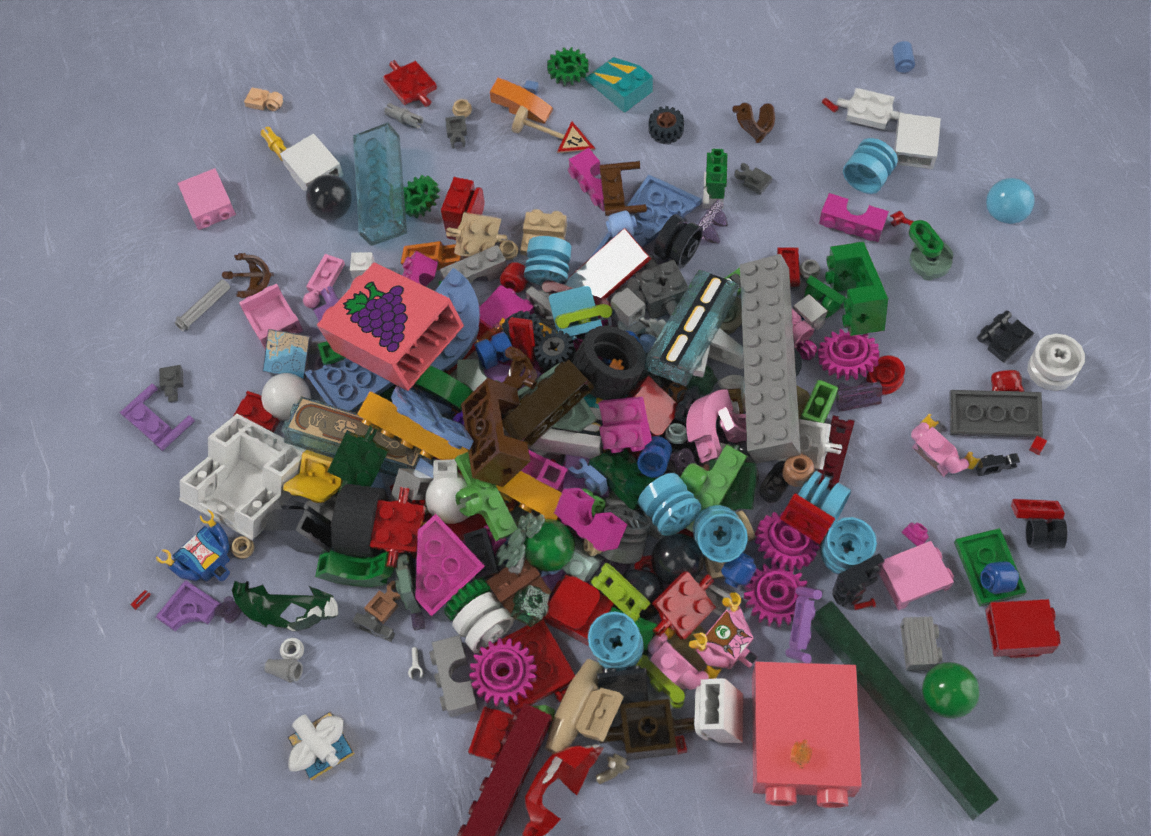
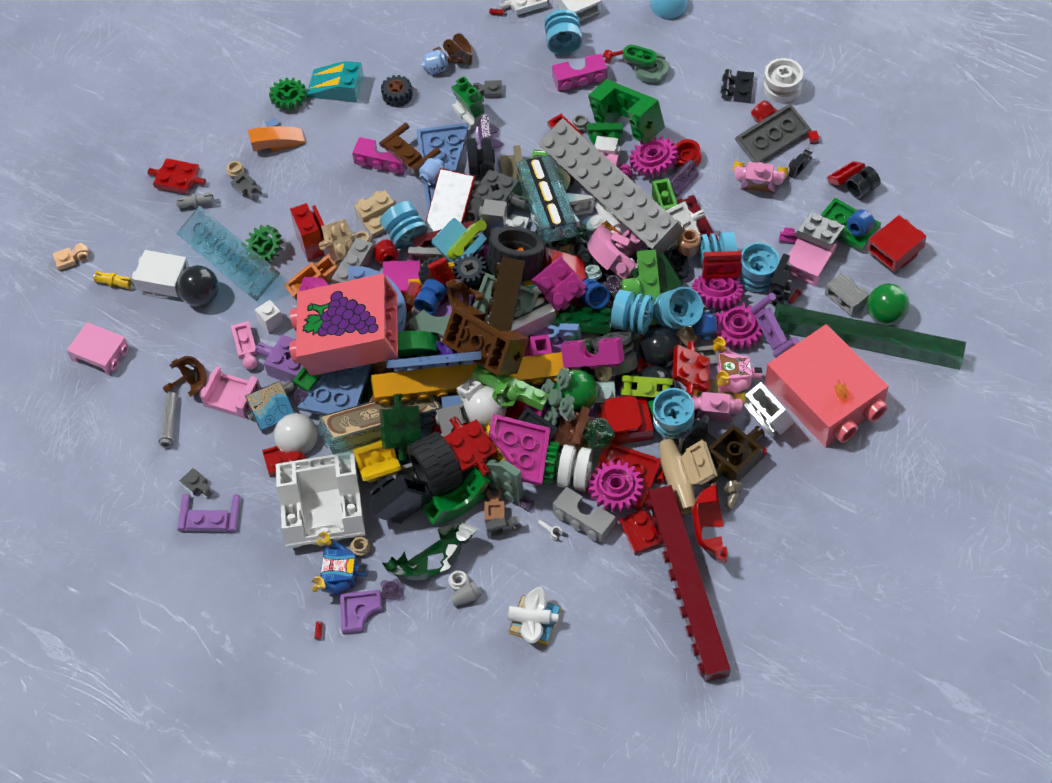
camera: 40 degrees left, 5 degrees down
(572, 141) = (337, 140): tan piece -> none
(661, 682) = (720, 423): lime plate -> none
(708, 264) = (508, 162): none -> dark tan panel
(725, 119) = (435, 62): none -> light blue head
(948, 555) = (820, 230): none -> plate

